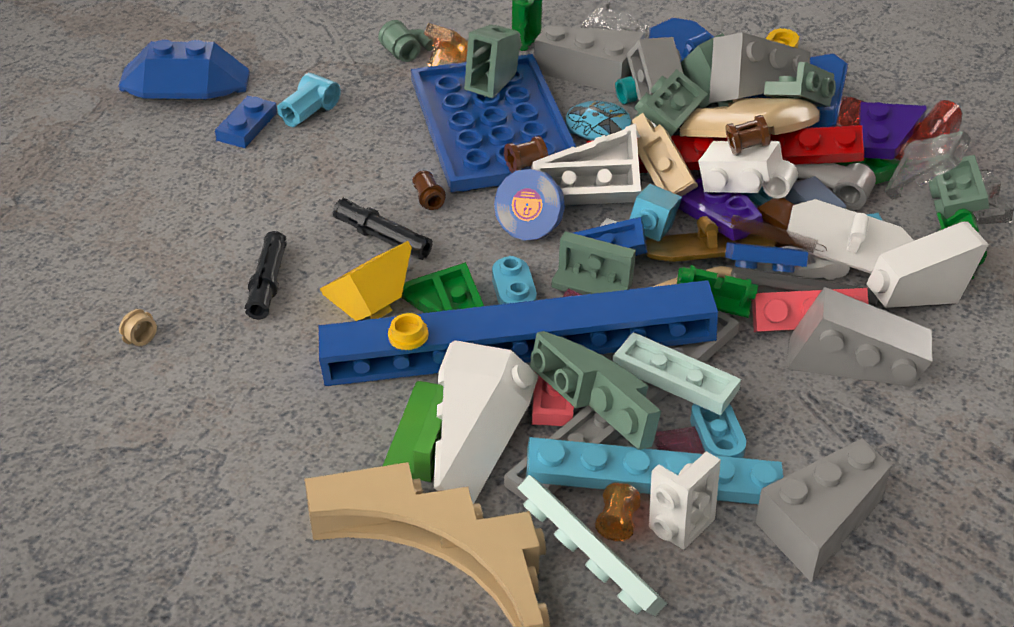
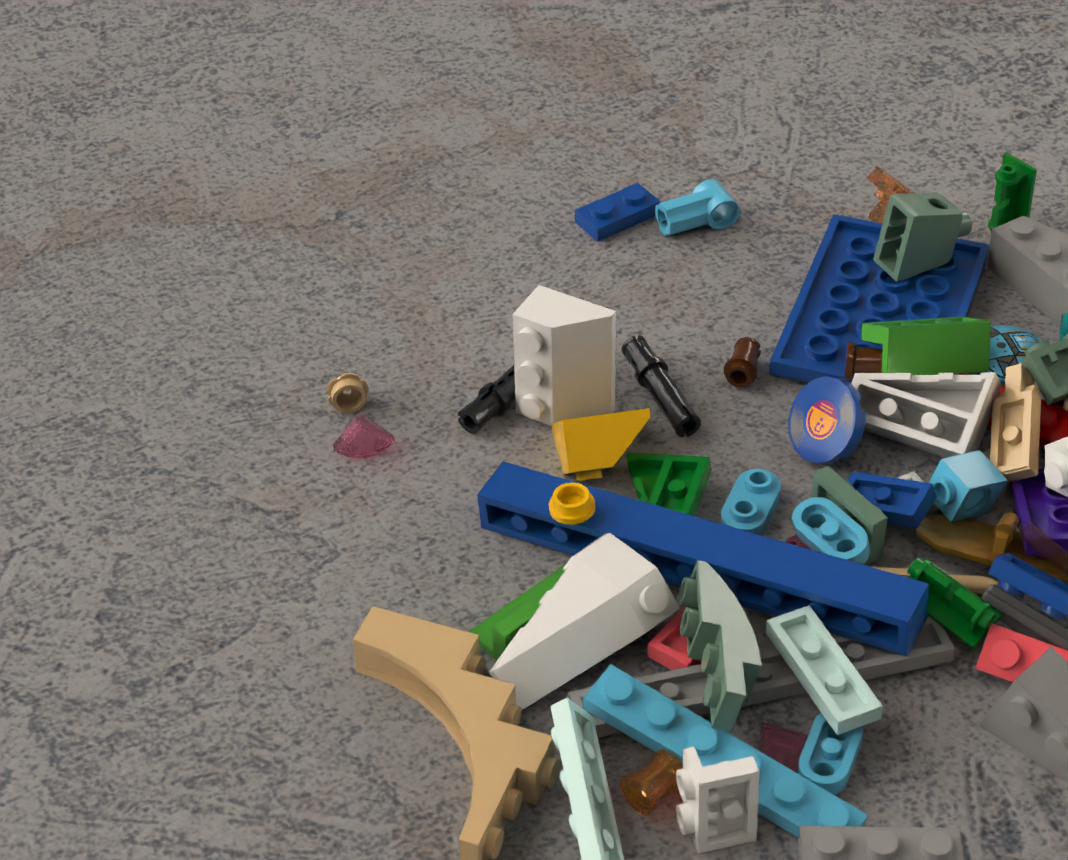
camera: 35 degrees right, 0 degrees up
(179, 357) = (363, 438): none -> clear pink tile
(184, 71) = (593, 134): blue wedge -> none
(313, 229) = (563, 357): none -> white slope
(403, 42) = (850, 174): sand green piece -> none
(560, 126) = (932, 345): none -> bright green panel
(599, 275) = (836, 533): none -> medium azure plate

